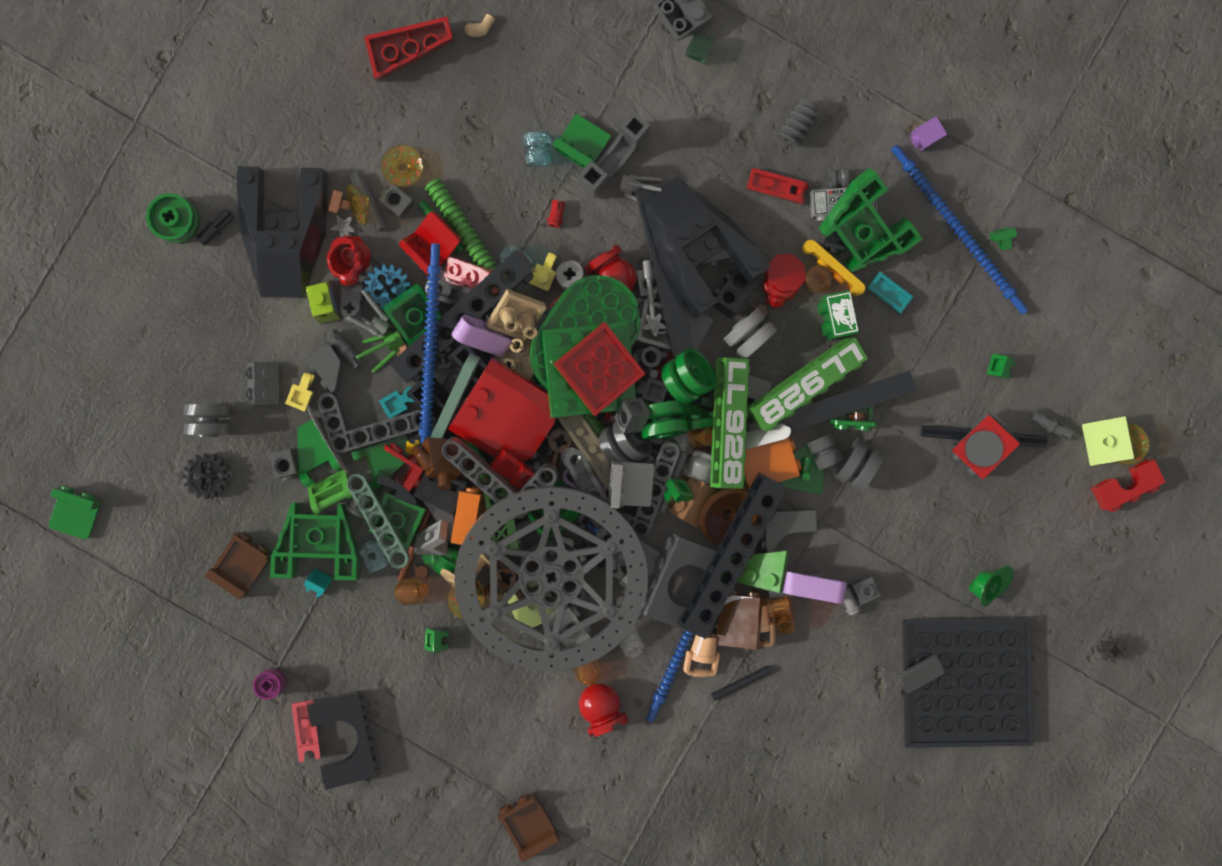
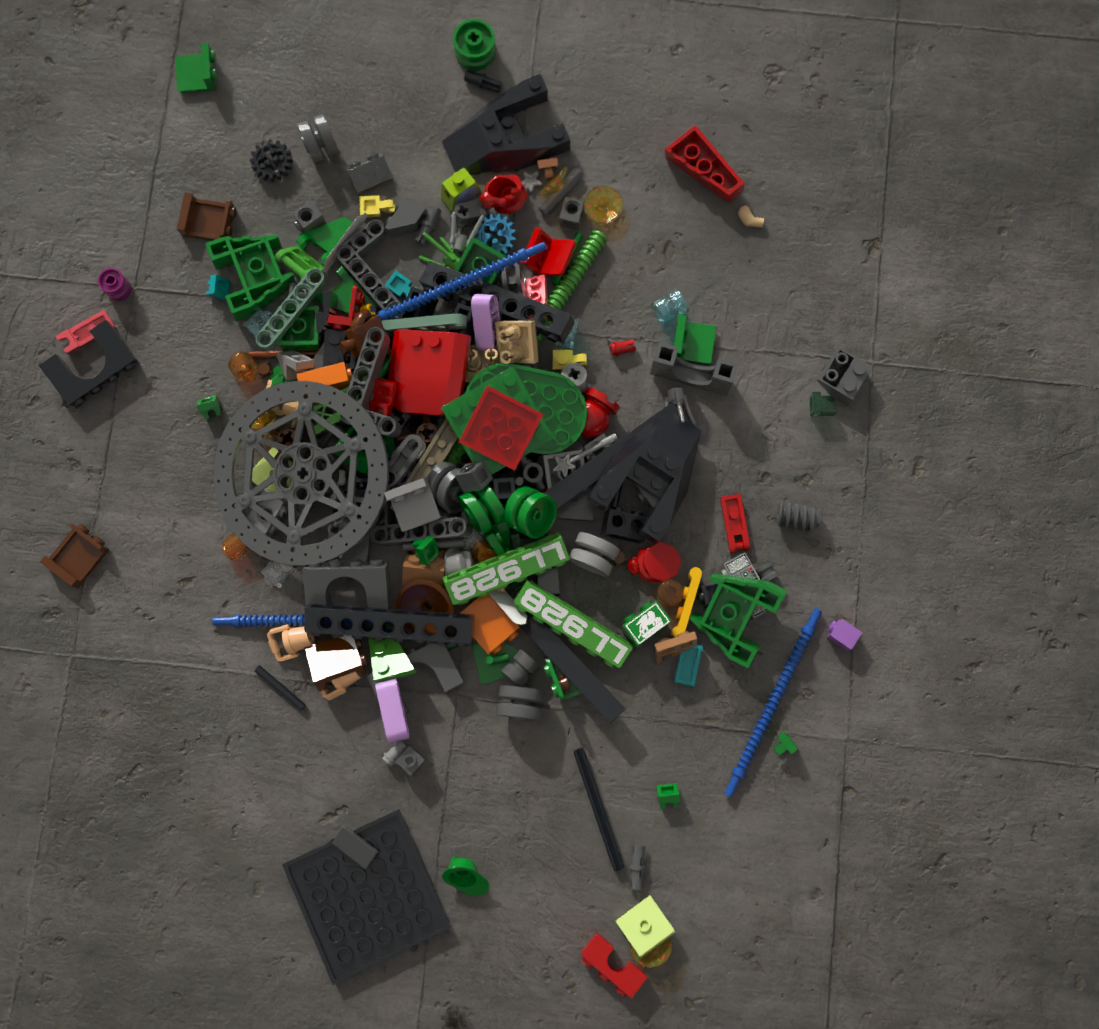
camera: 70 degrees right, 10 degrees down
(600, 707) = (206, 570): red tile -> none
(782, 614) = (356, 694): clear orange piece -> none
(868, 306) = (674, 646): none -> medium nougat wing
(985, 446) = (589, 811): panel -> none

